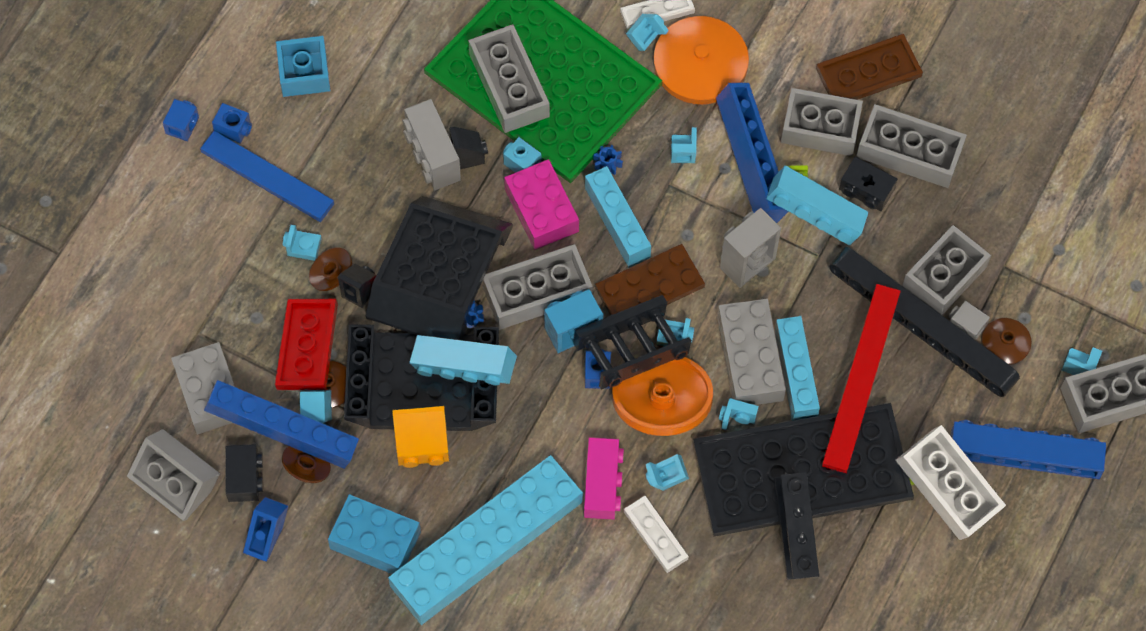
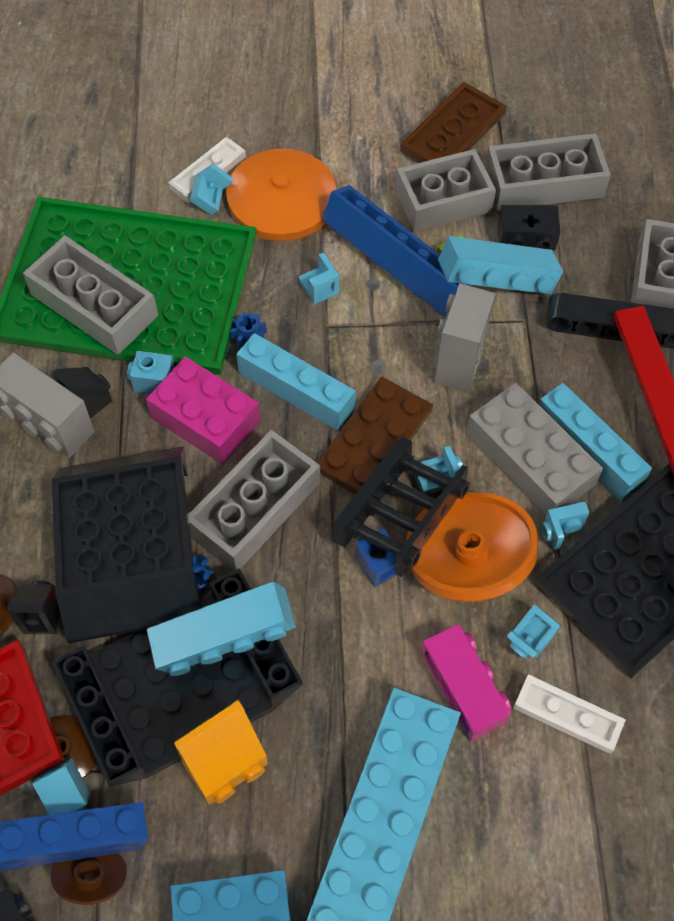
camera: 30 degrees left, 5 degrees down
(567, 316) = (312, 516): dark azure brick -> none

